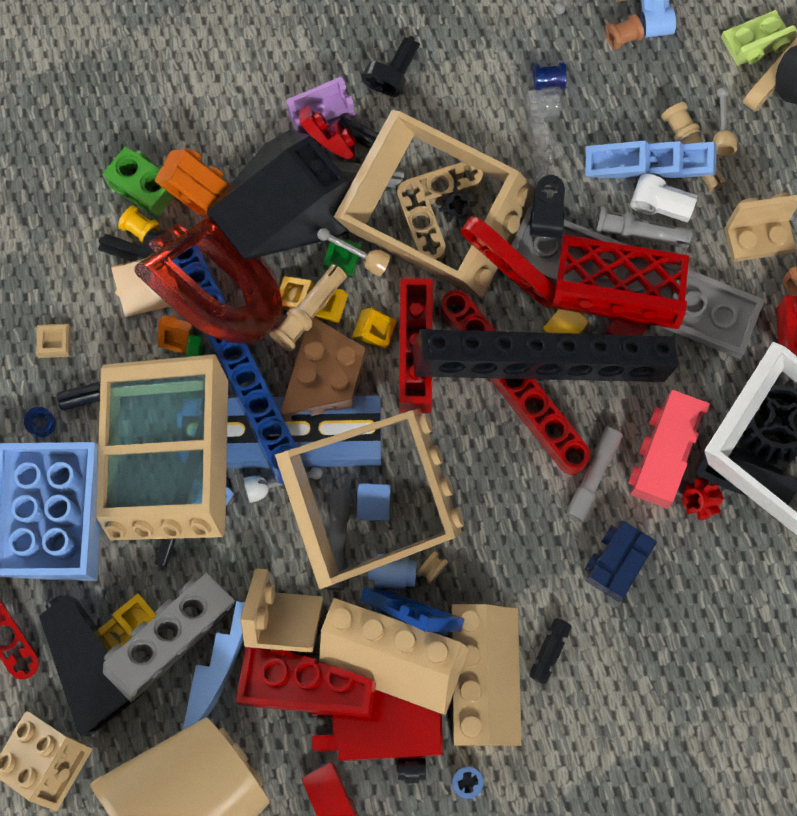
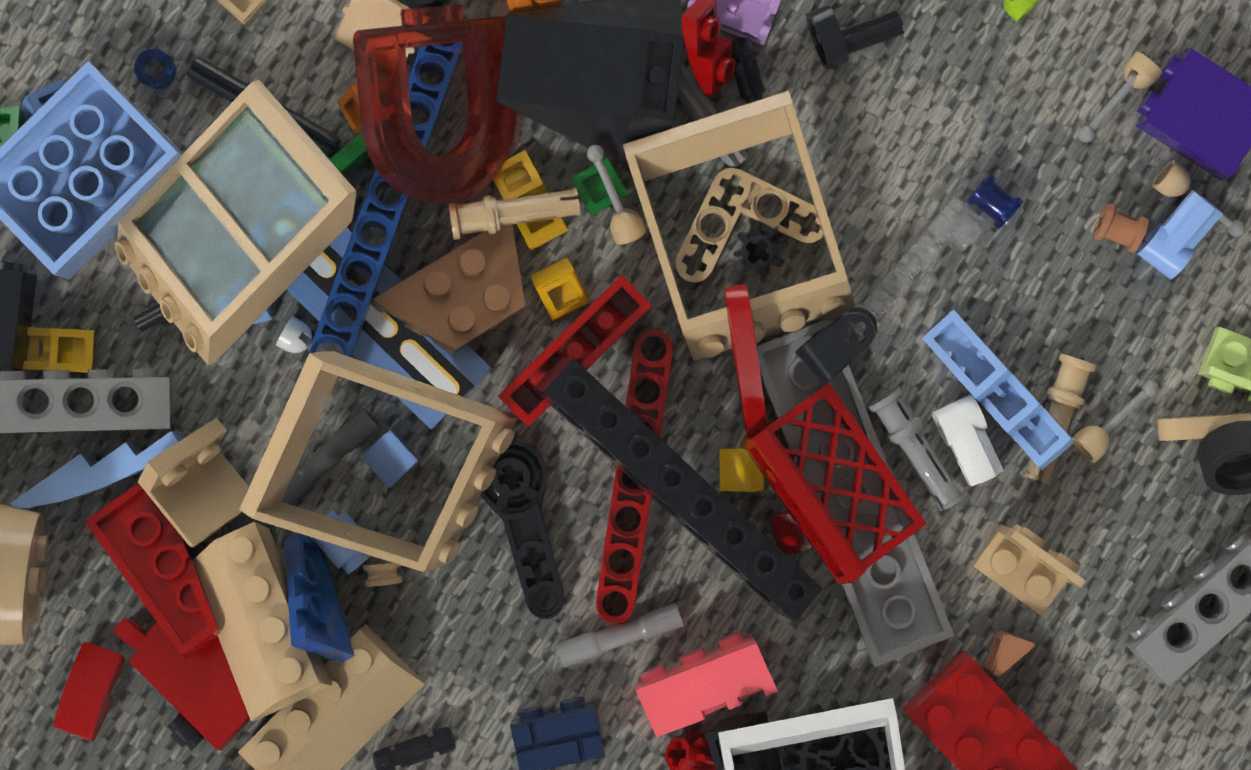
camera: 40 degrees right, 15 degrees up
(482, 464) = (524, 521): none -> black beam

